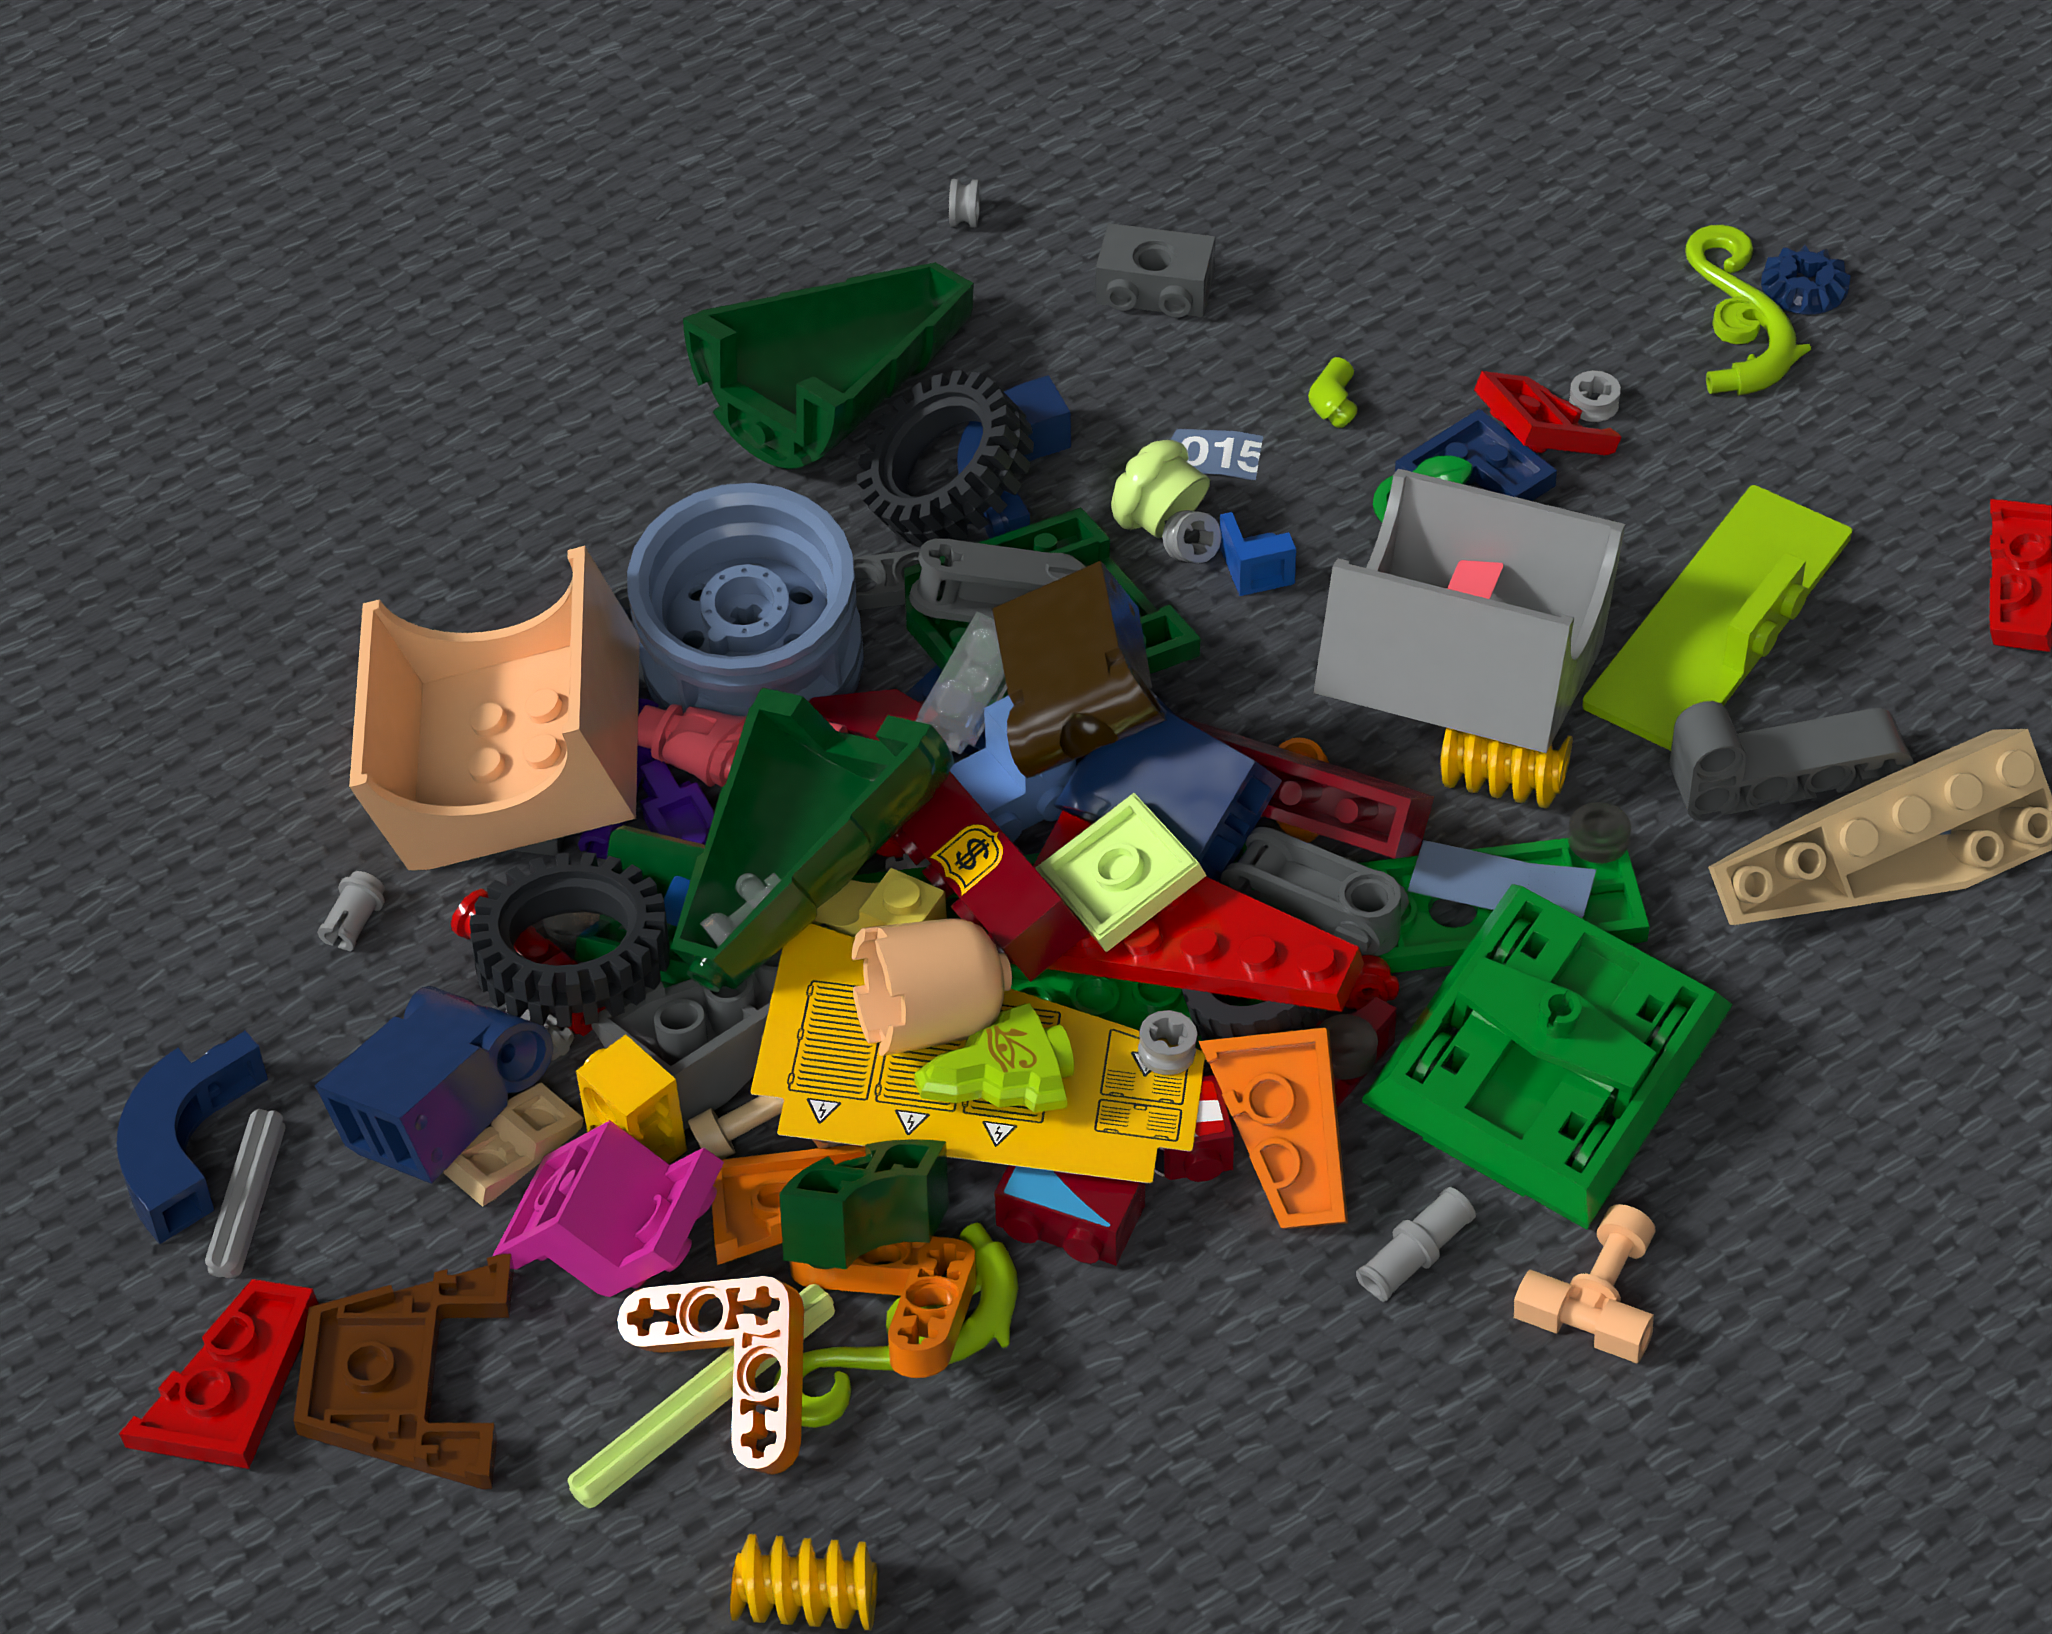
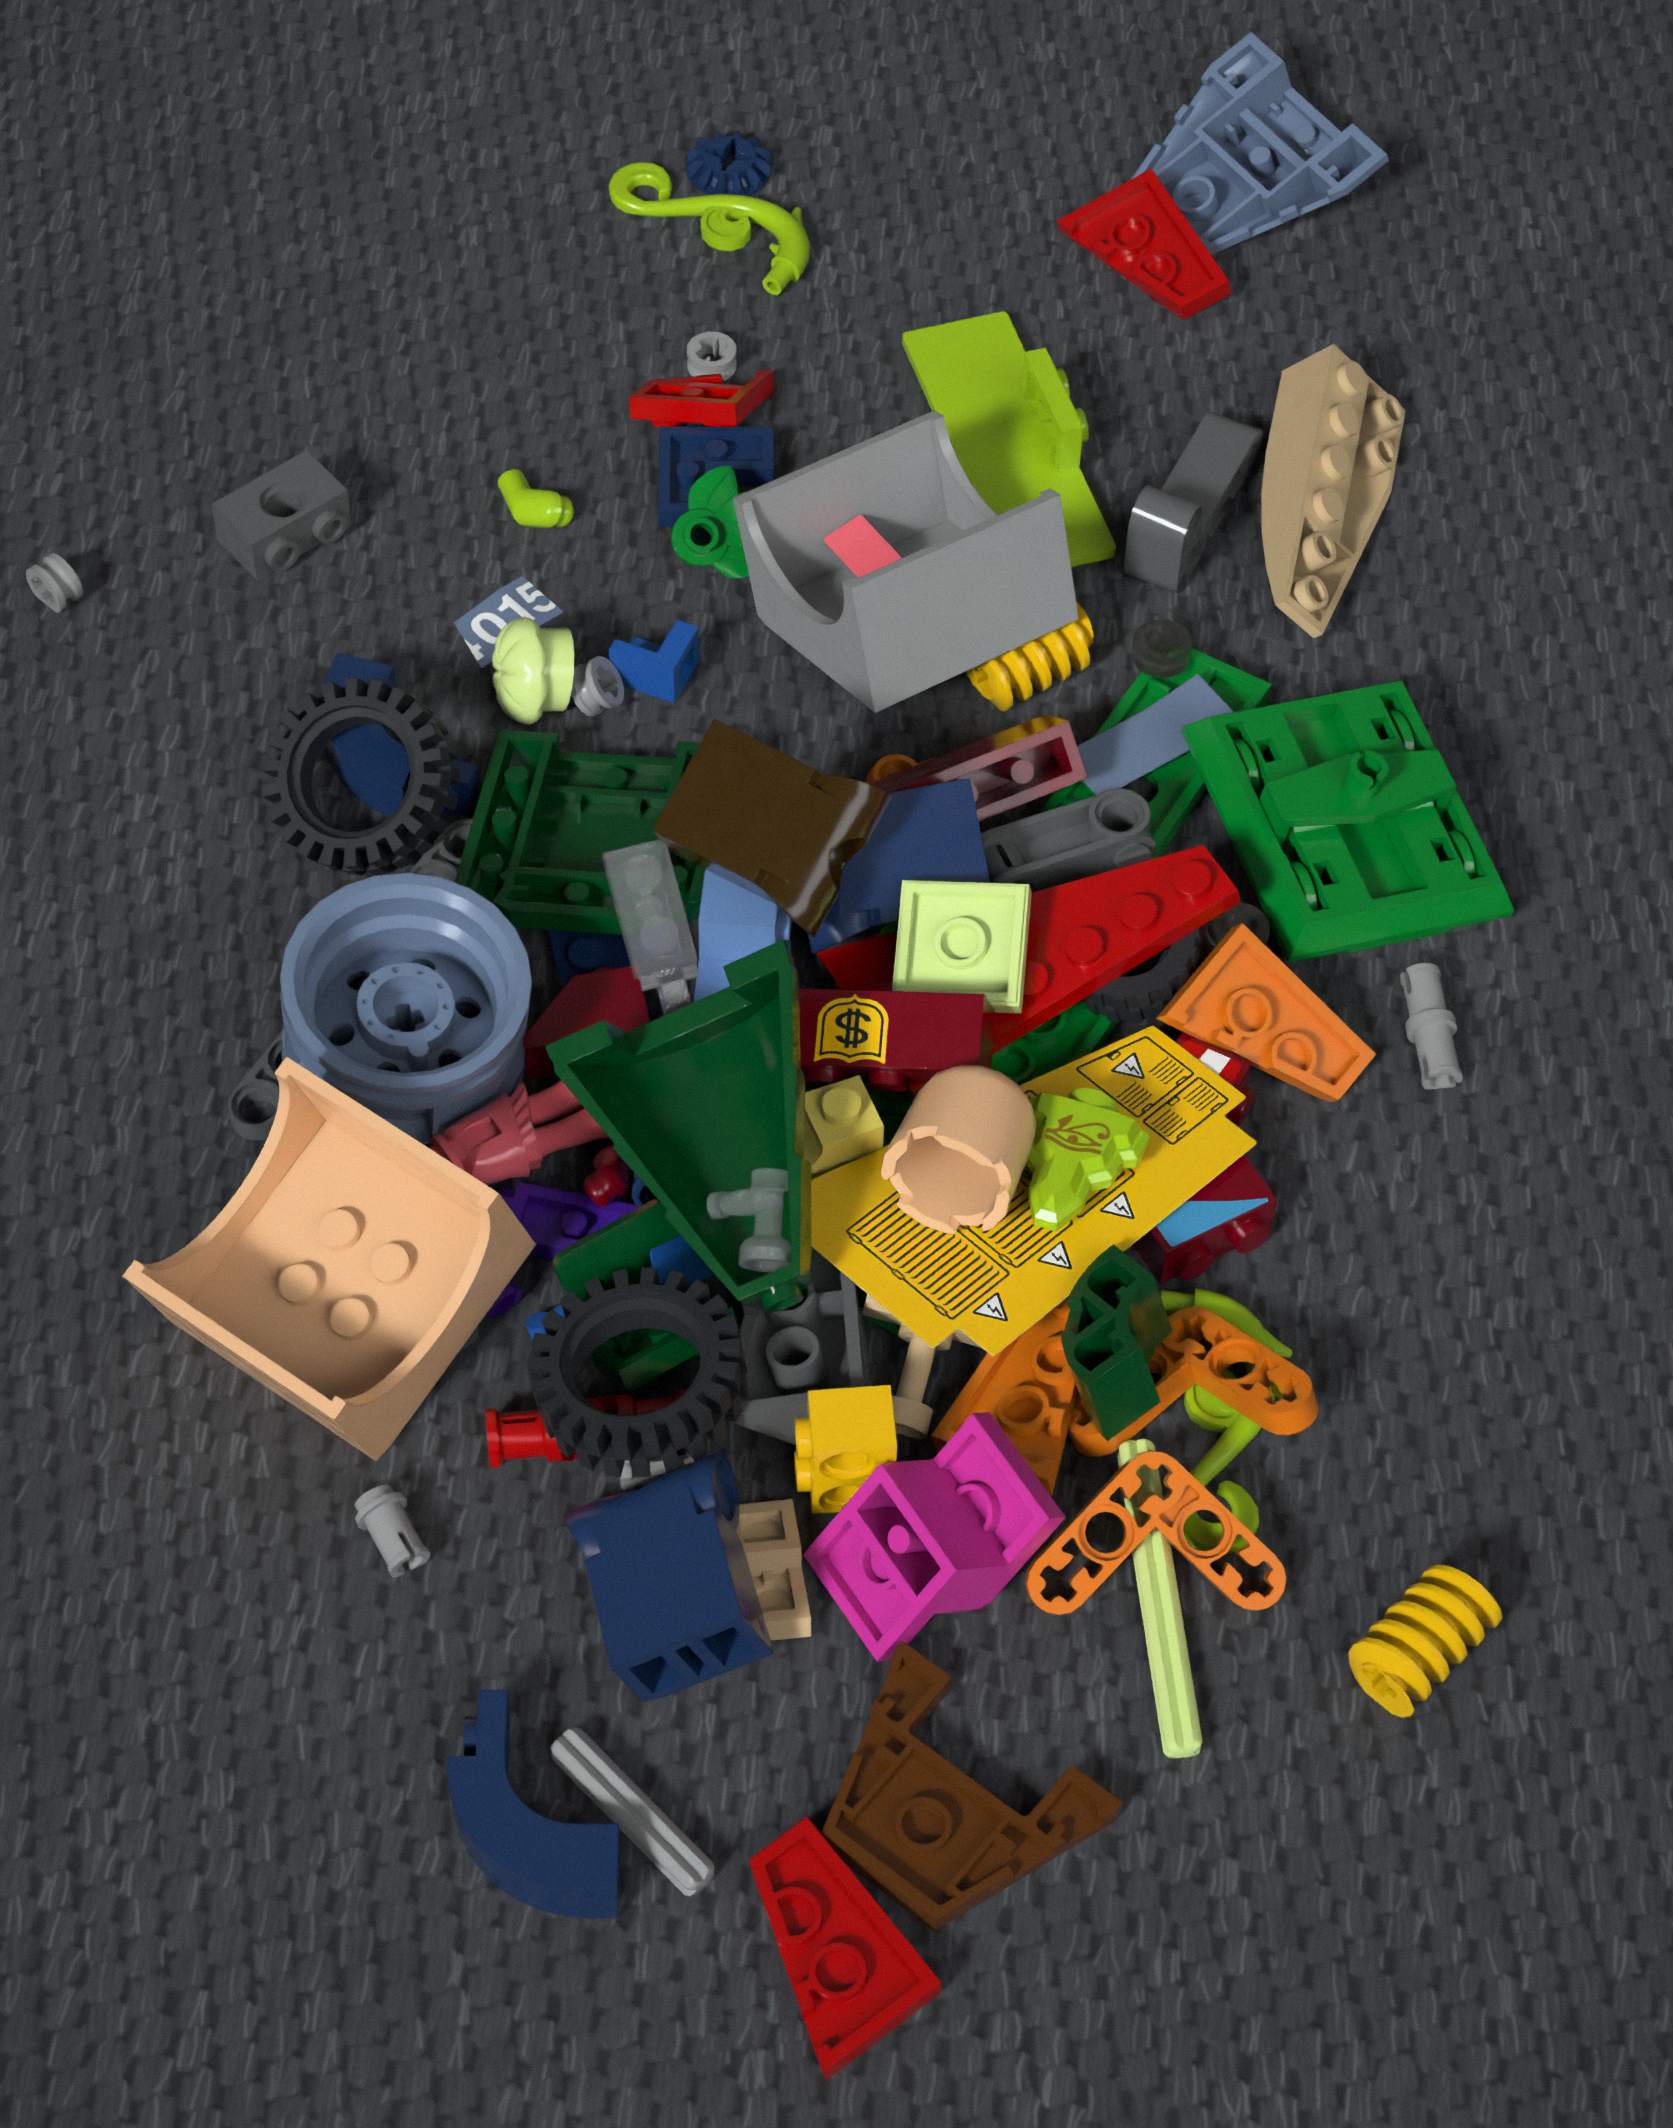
camera: 55 degrees left, 5 degrees up
(819, 359) = (149, 789): dark green cone -> none
(981, 577) = (566, 827): dark grey piece -> none
(1178, 1031) = (1138, 1055): light grey bush -> none
(1591, 1298) = (1574, 958): light nougat bar -> none

